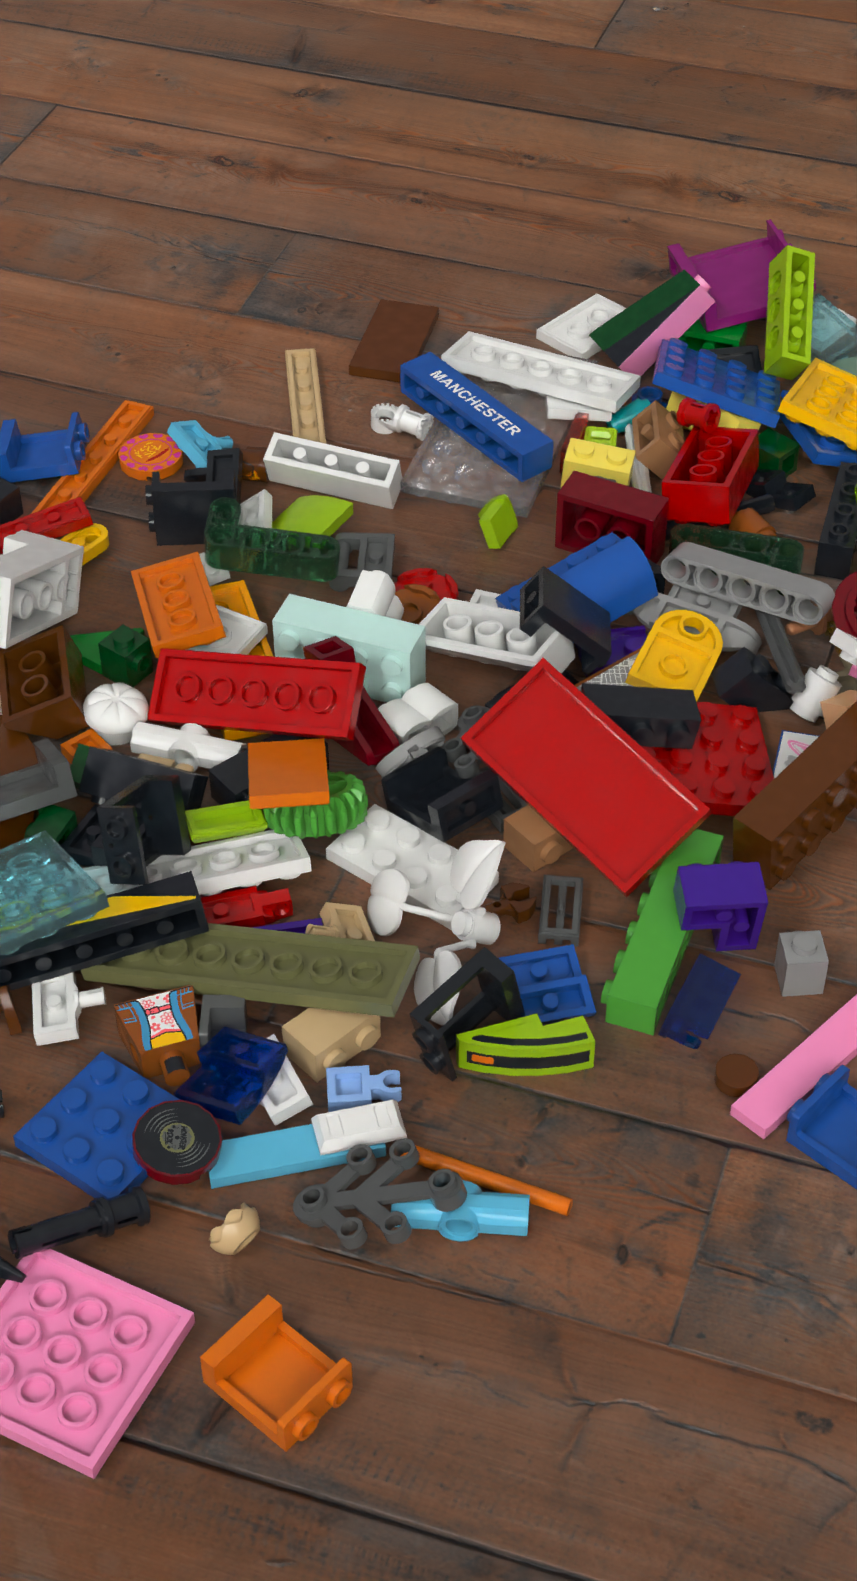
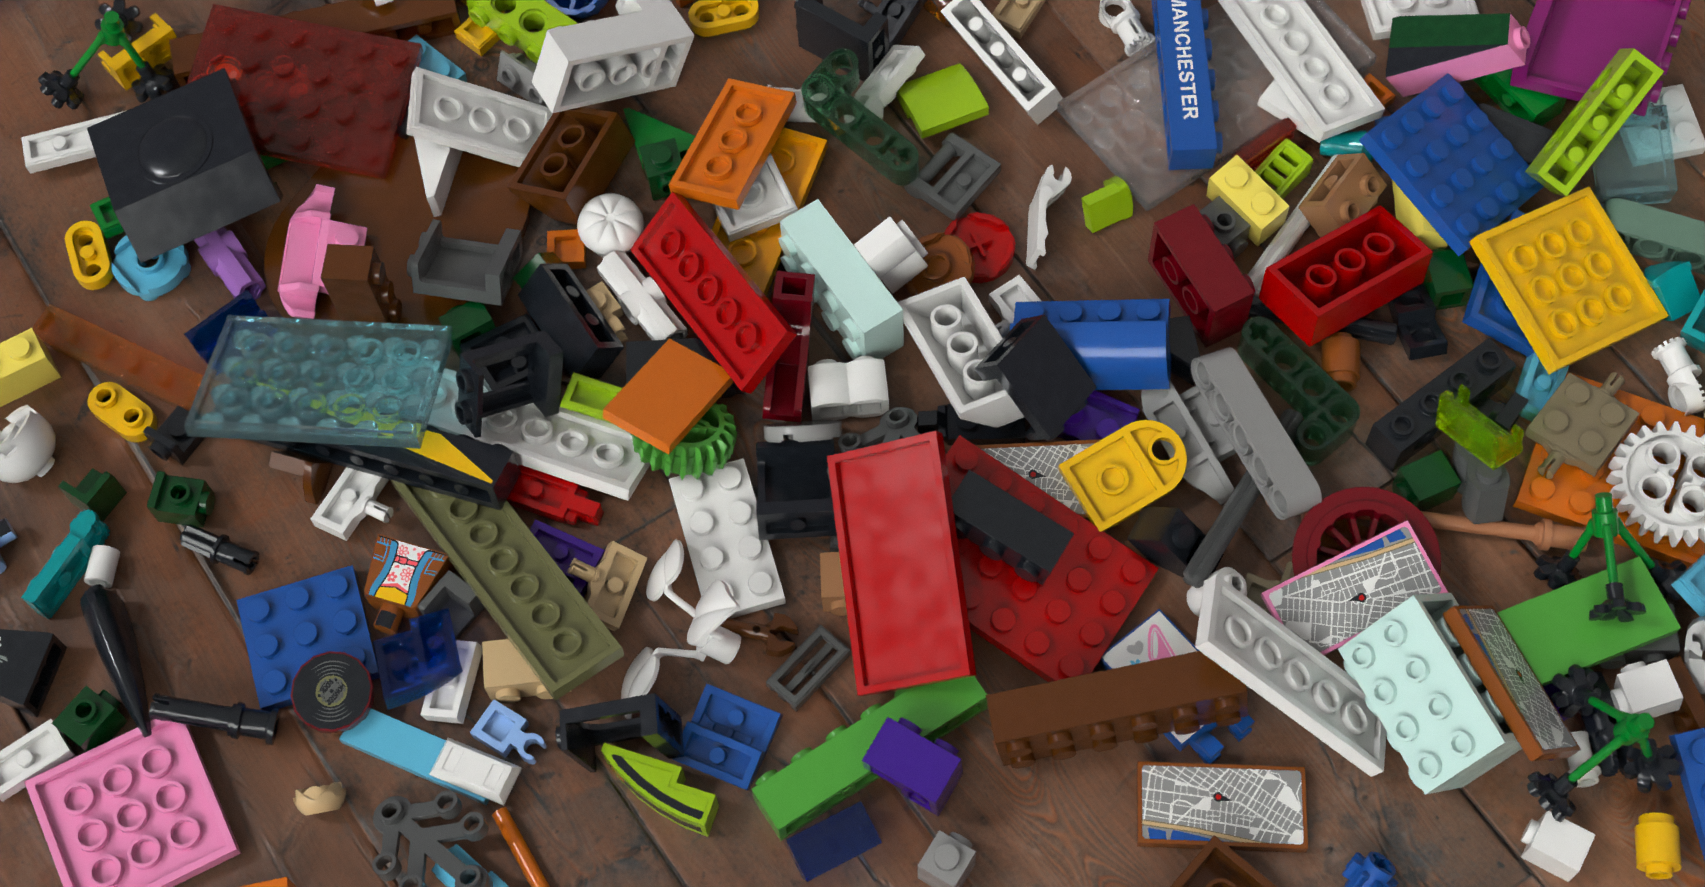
camera: 40 degrees right, 20 degrees up
(455, 552) = (1047, 193): none -> white arm
(698, 415) = (1384, 201): red bush -> none

